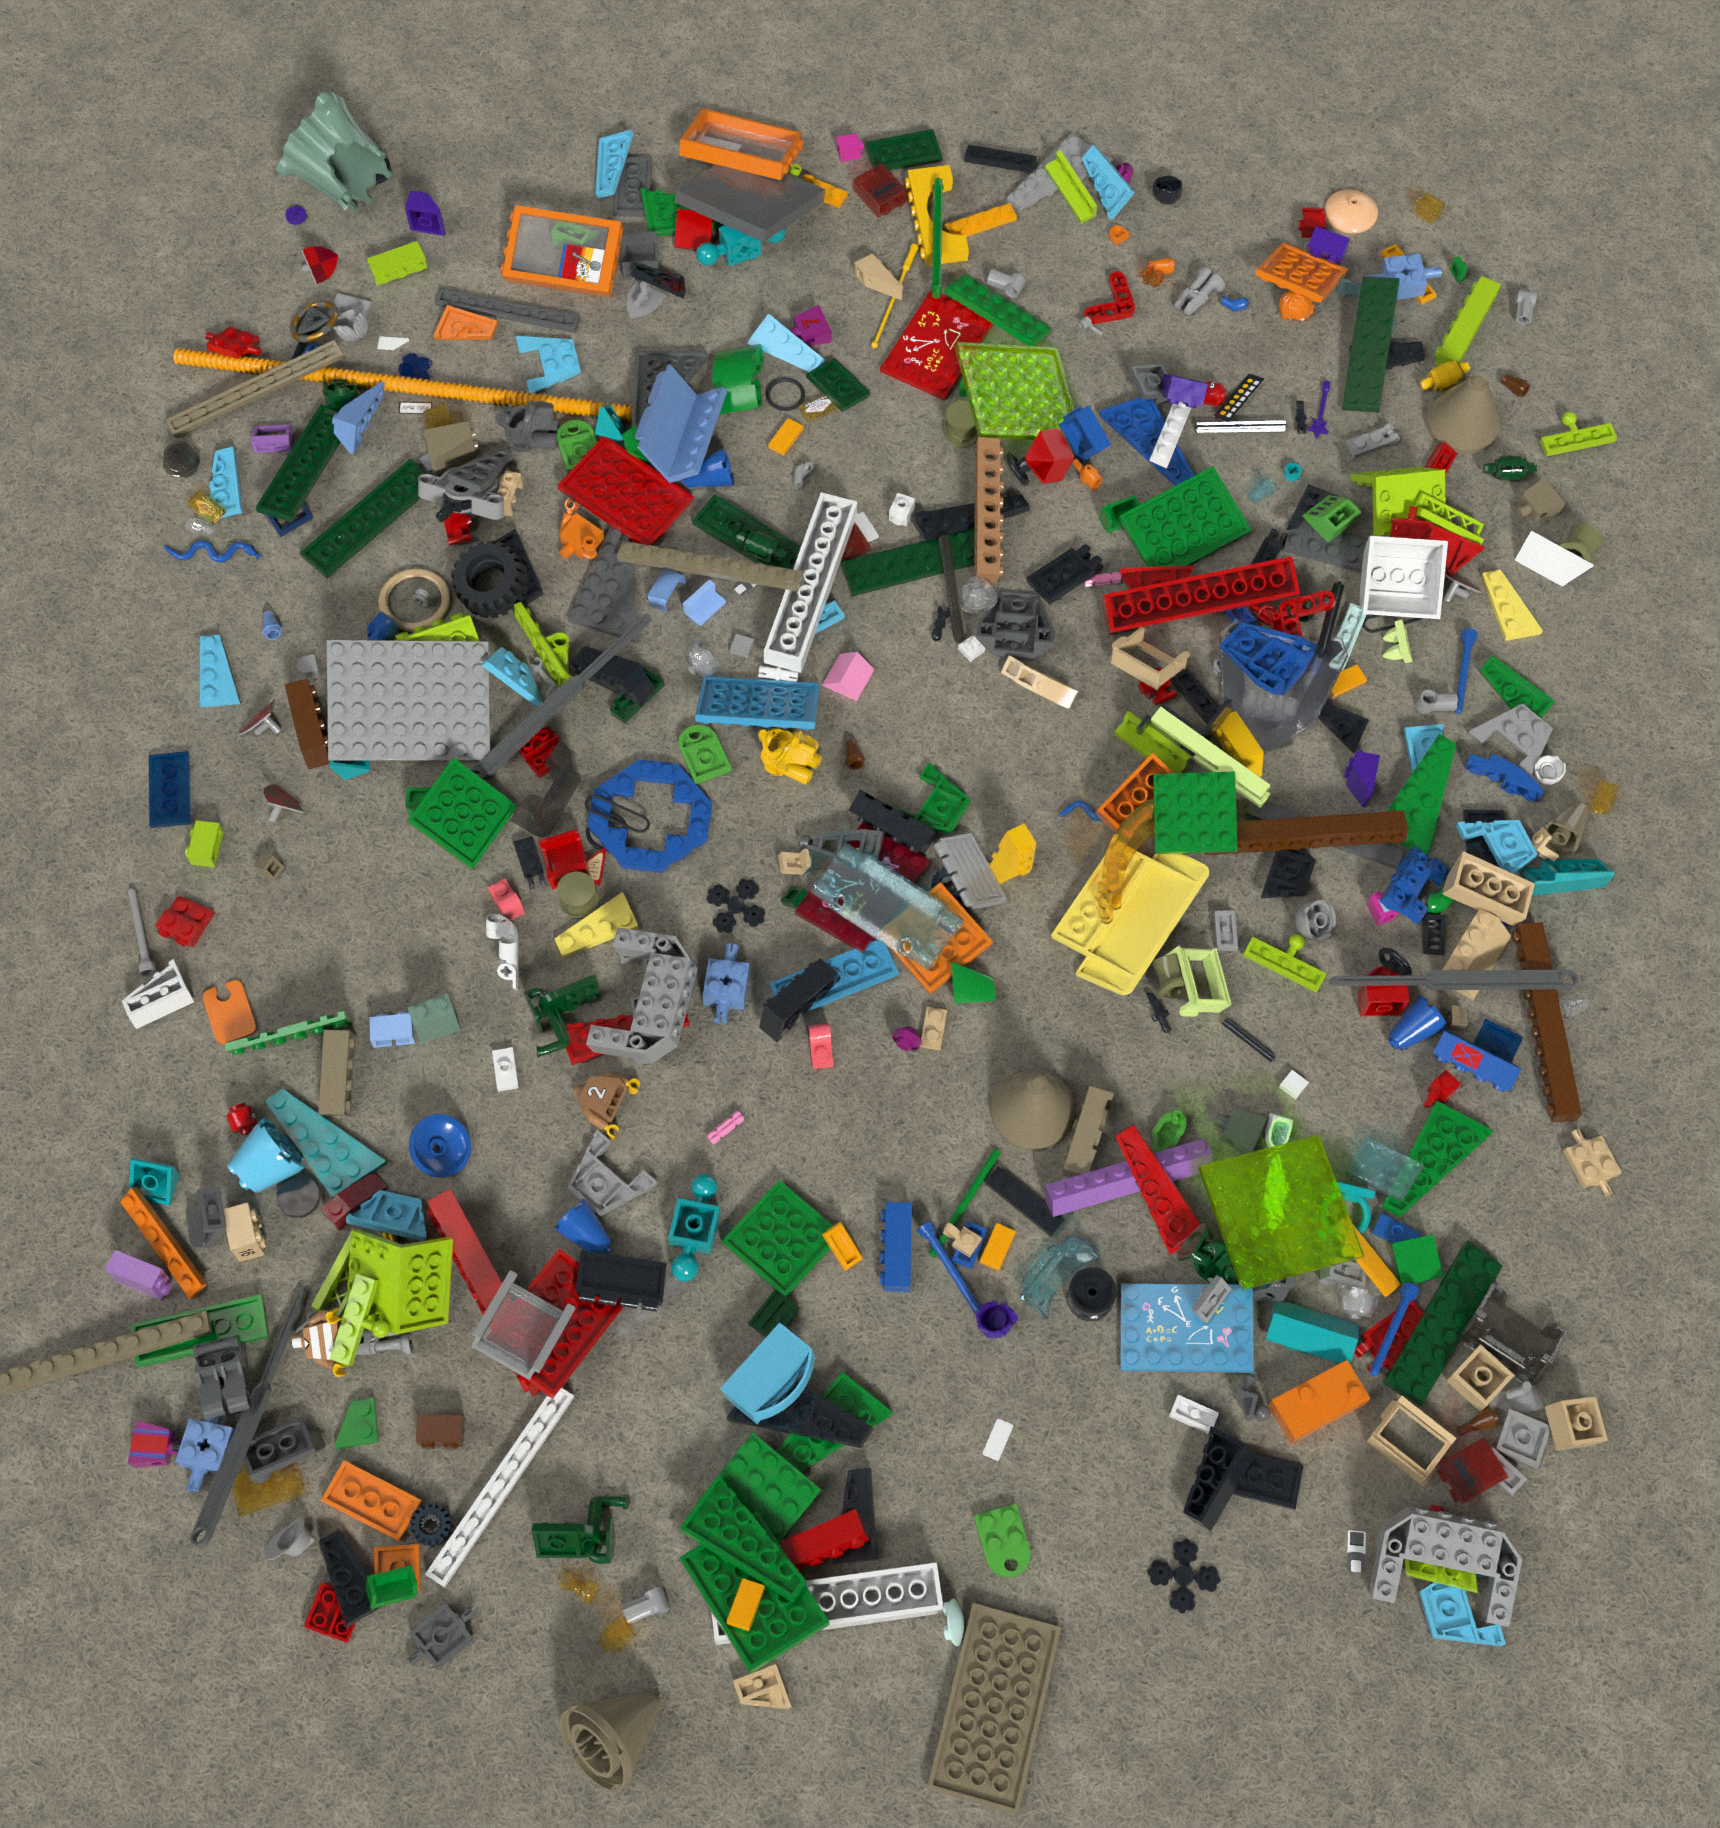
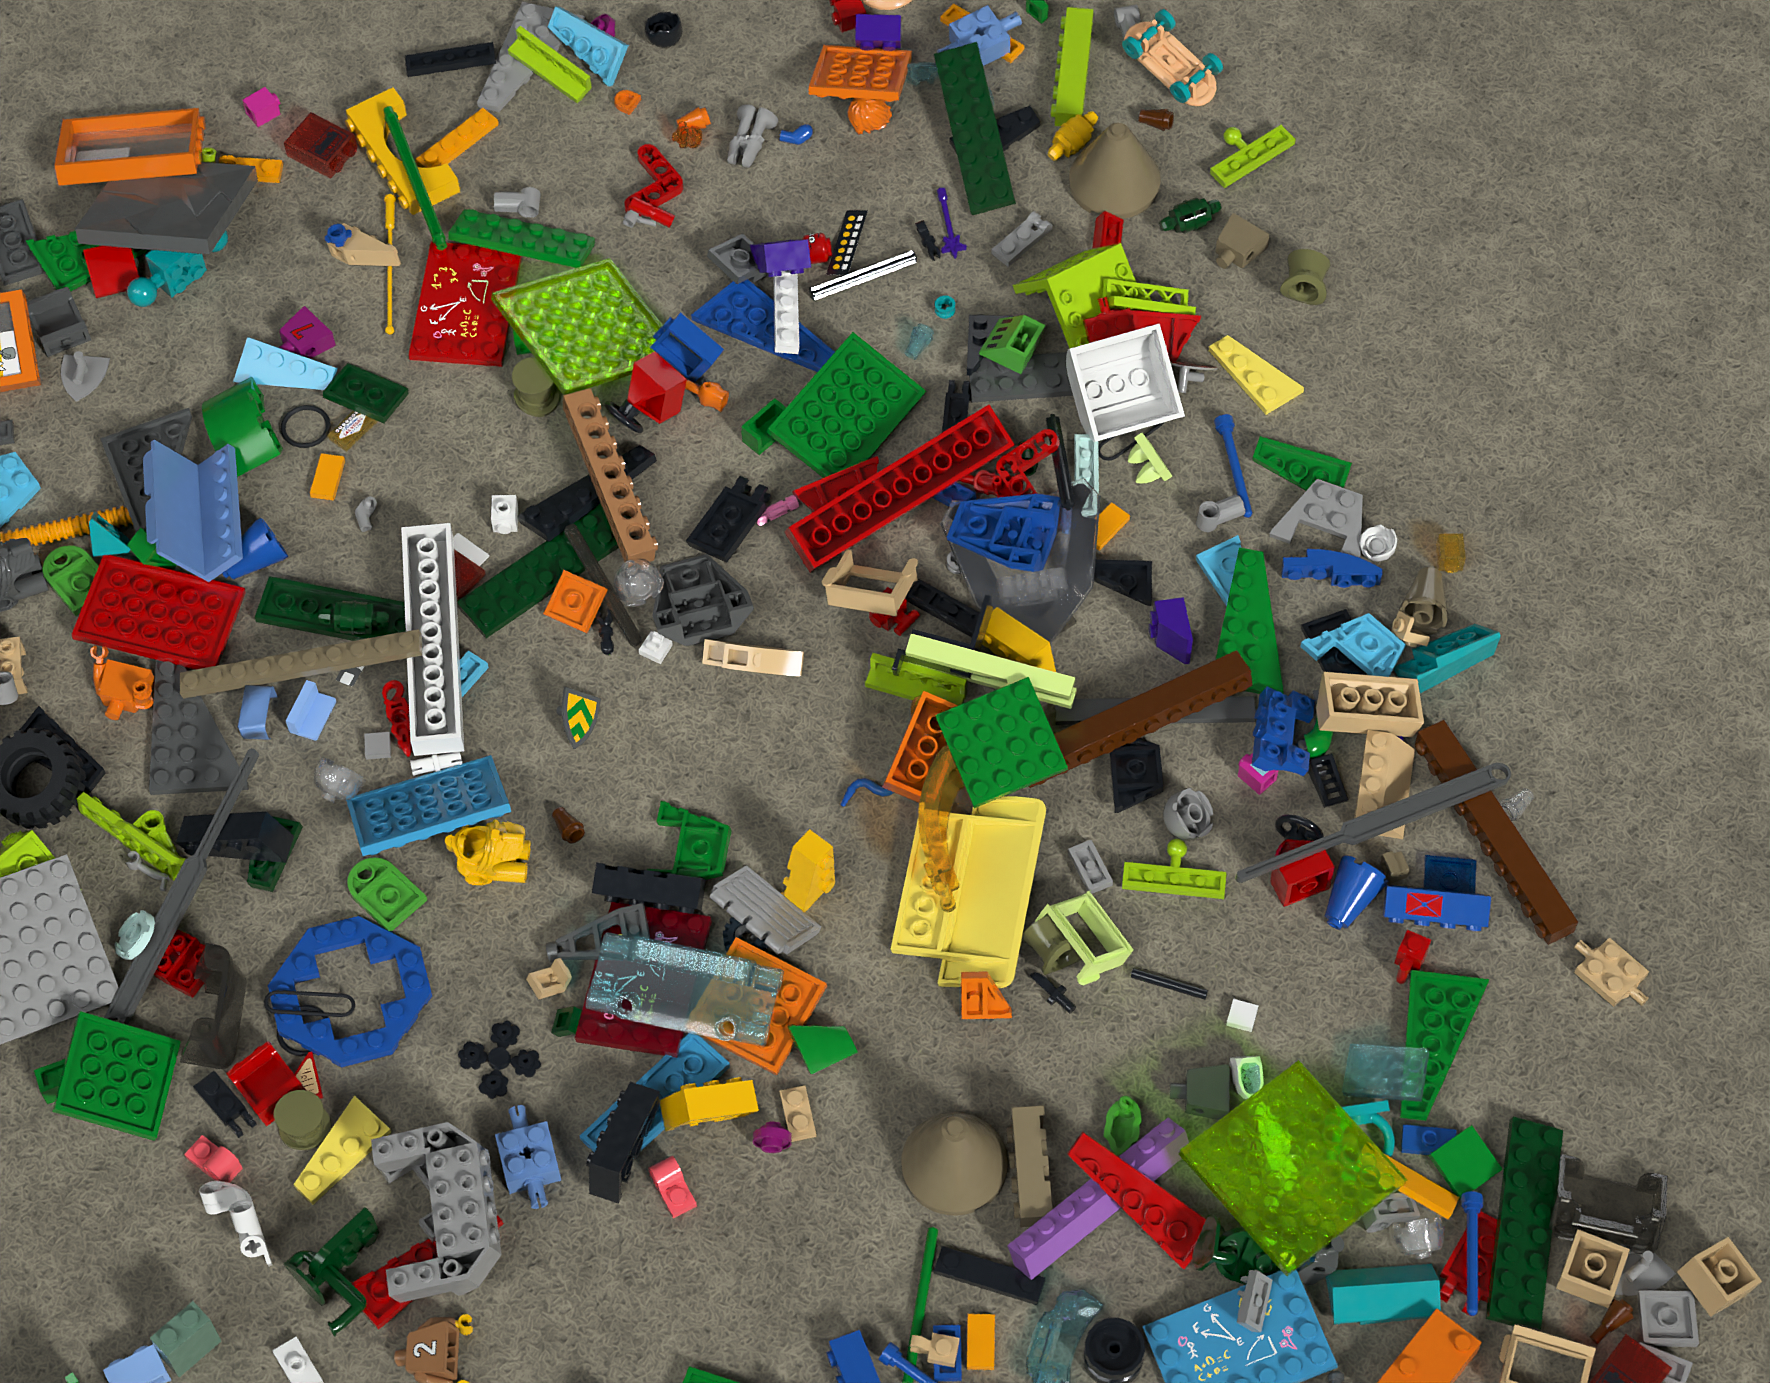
camera: 20 degrees left, 5 degrees down
(514, 674) = (112, 882): medium azure wing -> none
(515, 717) = (135, 935): none -> light aqua tile
(661, 279) = (94, 341): black wing -> none
(725, 1127) = (597, 1329): bright pink axle -> none
(763, 627) = (398, 715): none -> red animal
(849, 675) = (522, 733): bright pink slope -> none
(864, 260) = (337, 235): none -> blue plate
(871, 995) = (709, 1103): none -> yellow wedge
(894, 677) = (578, 715): none -> shield
(904, 150) = (330, 87): dark green plate -> none
(926, 593) = (575, 601): none -> orange tile
(1103, 325) = (648, 210): none -> red piece
(1103, 996) = (982, 997): none -> orange wing
(1545, 345) = (1171, 61): none -> light nougat piece
(1551, 560) = (1280, 303): white sticker -> none

